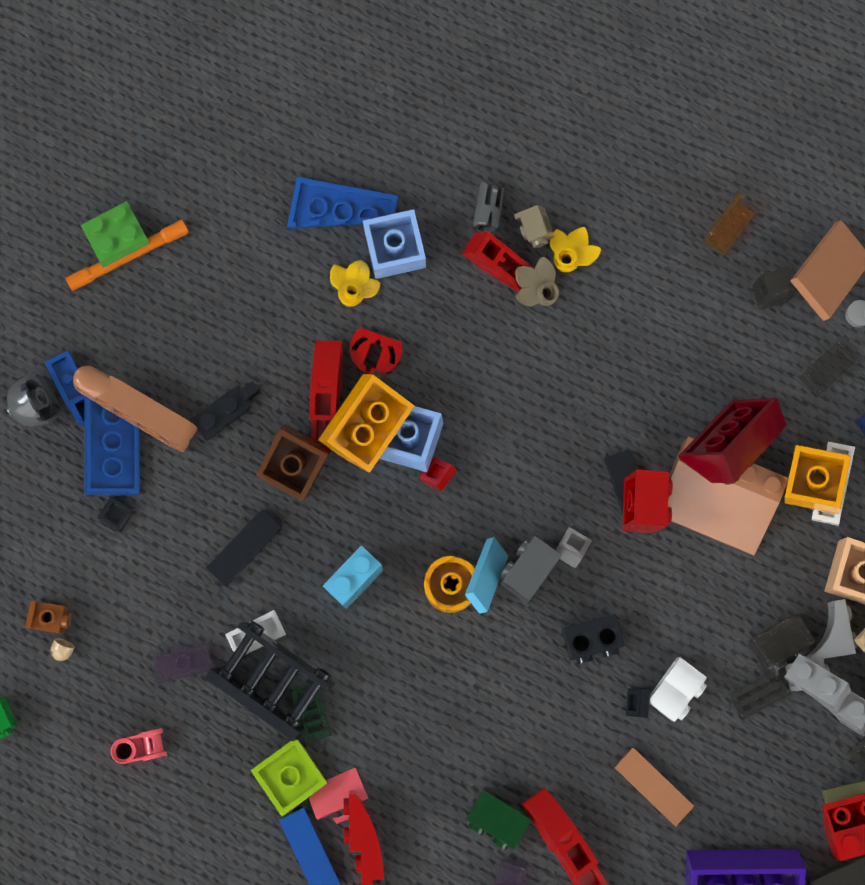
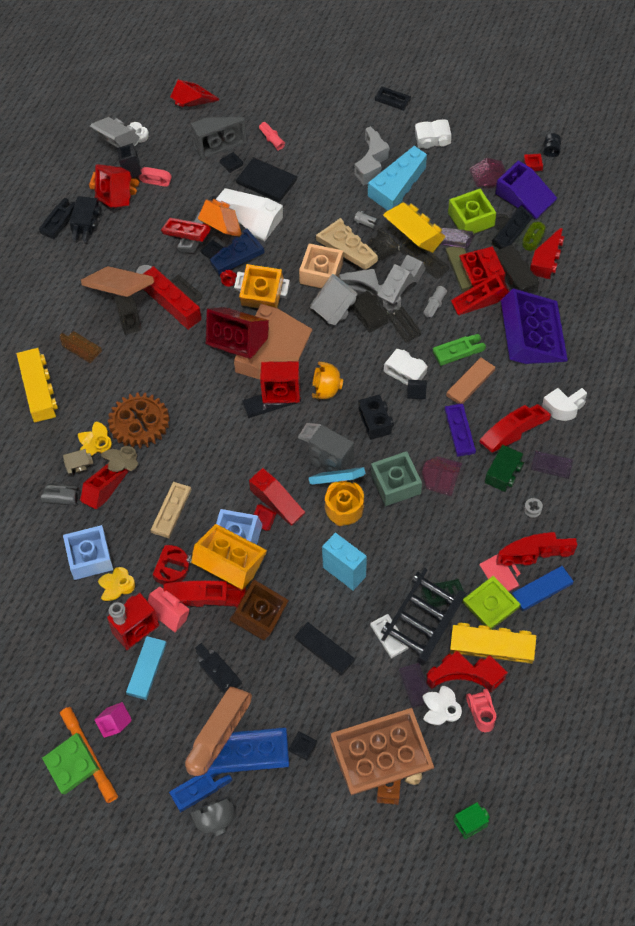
camera: 90 degrees left, 20 degrees down
(86, 610) = (381, 751): none -> nougat slope
(150, 691) = (439, 704): none -> white plate
(166, 282) = (113, 720): none -> dark pink panel
(200, 717) = (455, 667): none -> red arch
(226, 772) = (500, 643): none -> yellow brick
(235, 322) = (146, 668): none -> medium azure tile
(276, 271) = (117, 611): none -> light grey pin
(288, 301) = (139, 623): none -> red brick
(310, 346) = (168, 608): none -> coral piece
(332, 205) = (53, 600): blue wing -> none
(436, 864) = (533, 501): none -> light grey bush
(460, 352) = (171, 510): none -> tan tile
(468, 492) = (275, 496): none -> red slope
(485, 659) = (396, 478): none -> sand green brick
(497, 727) = (441, 475): none -> clear pink slope
(570, 761) = (459, 430): none -> dark purple tile
(613, 325) = (152, 411): none -> dark orange gear
(653, 570) = (326, 381): none -> light orange cylinder
(661, 167) = (36, 385): none -> yellow brick
(709, 771) = (458, 349): none -> bright green hinge
(795, 588) = (334, 300): none -> light grey slope
(799, 745) = (435, 302): none -> light grey axle
(807, 819) = (482, 295): none -> red slope
(809, 349) = (173, 299): none -> red brick
(848, 434) = (228, 278): none -> red plate

